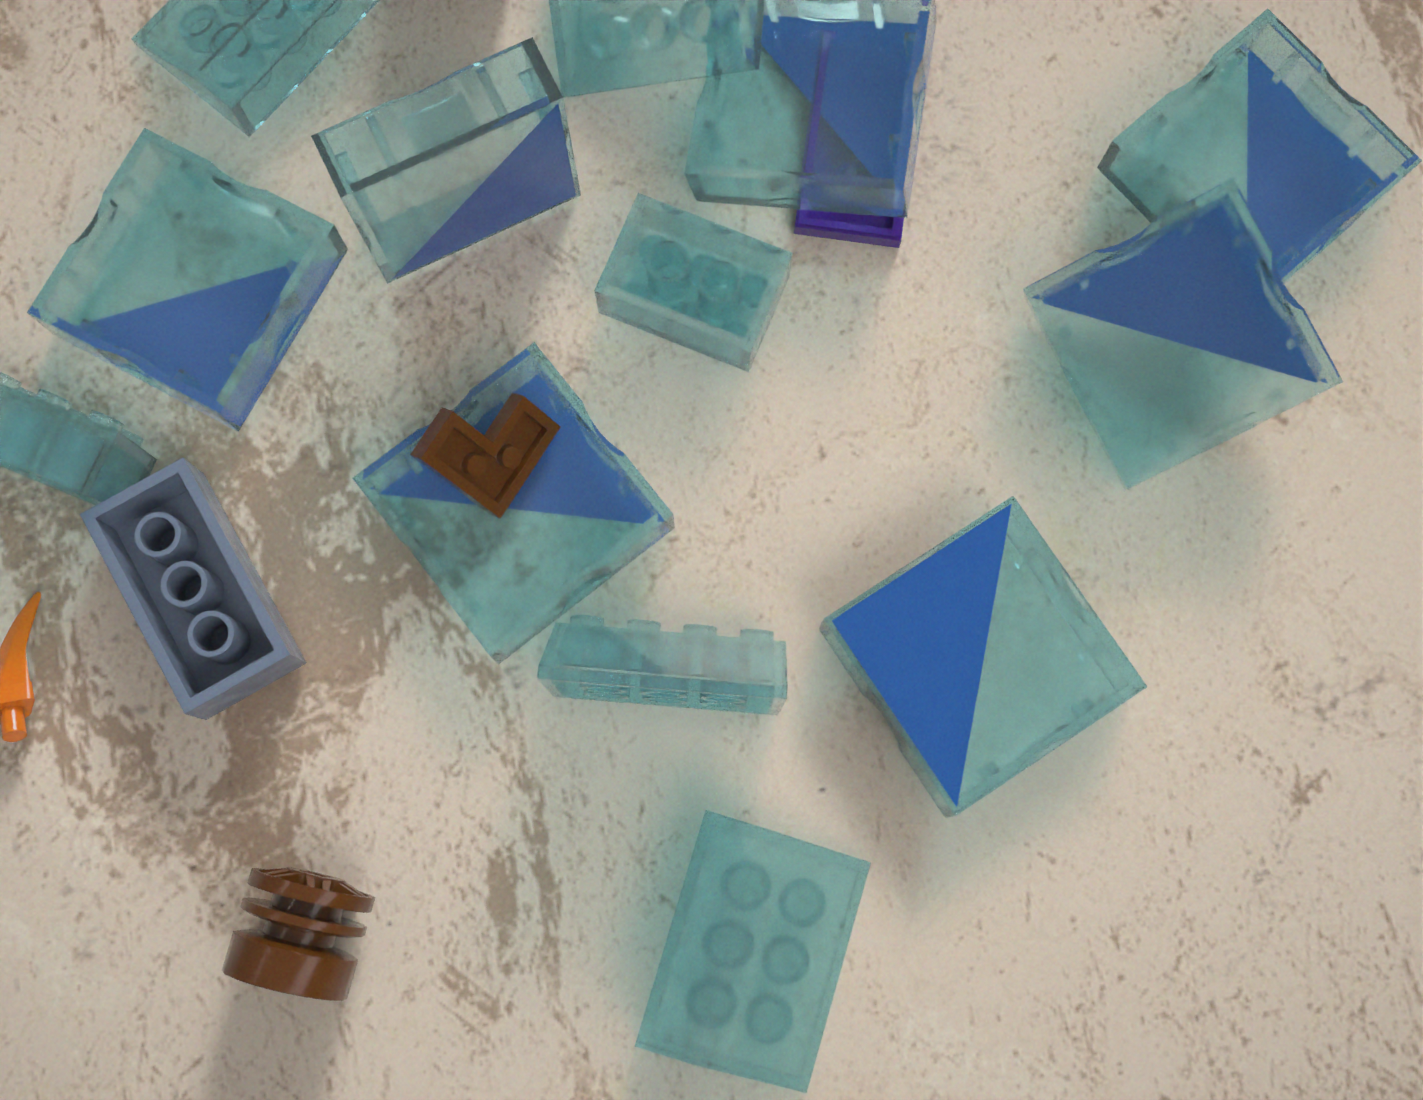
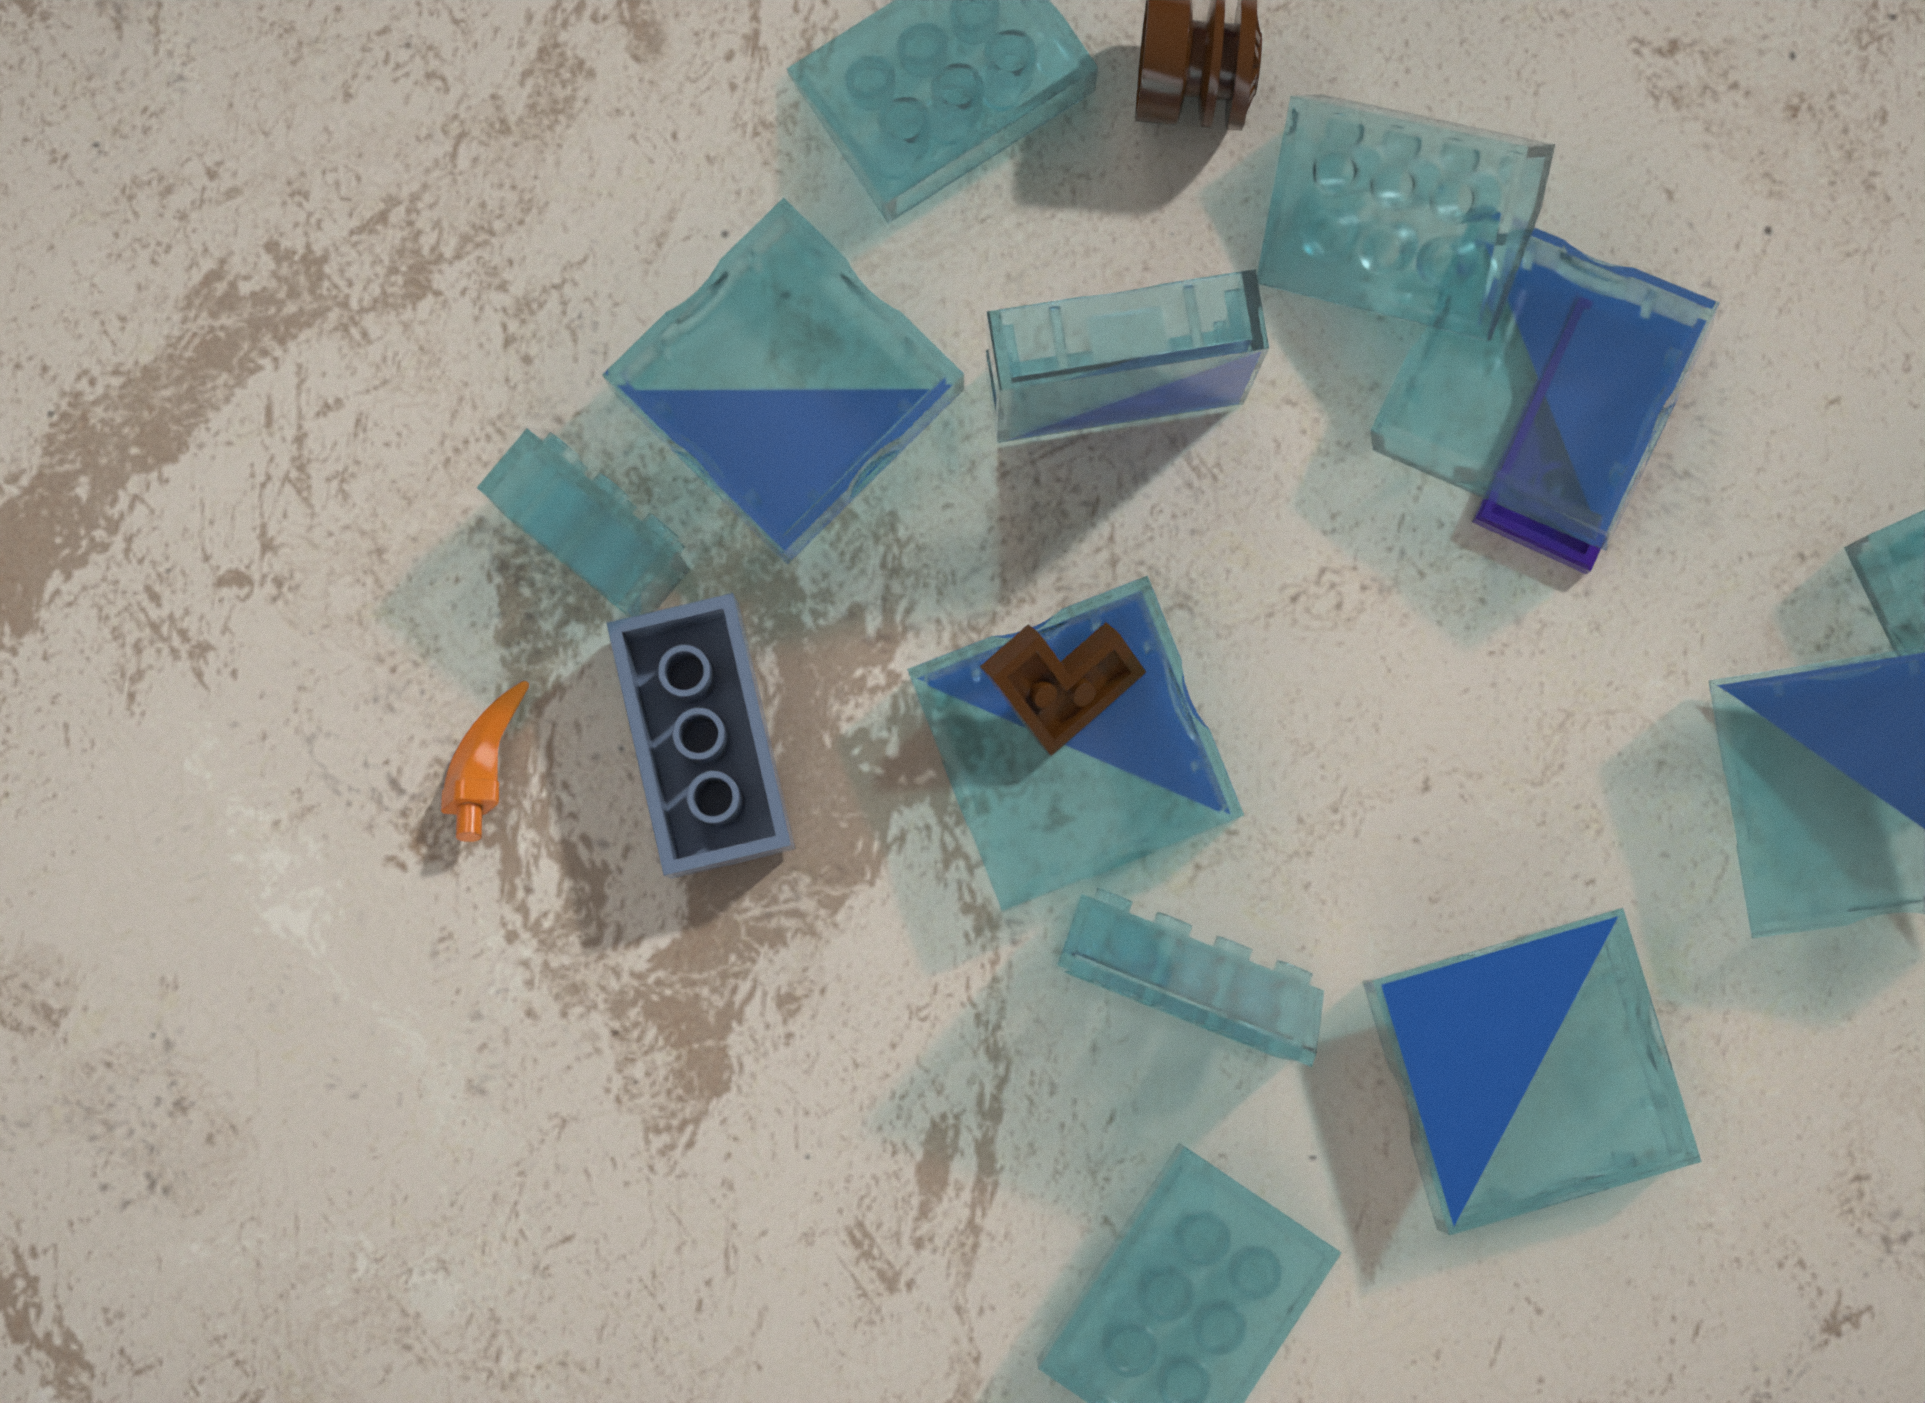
camera: 20 degrees right, 5 degrees up
(298, 935) = (719, 1143): reddish brown wheel -> none
(693, 282) = (1343, 555): clear light blue brick -> none

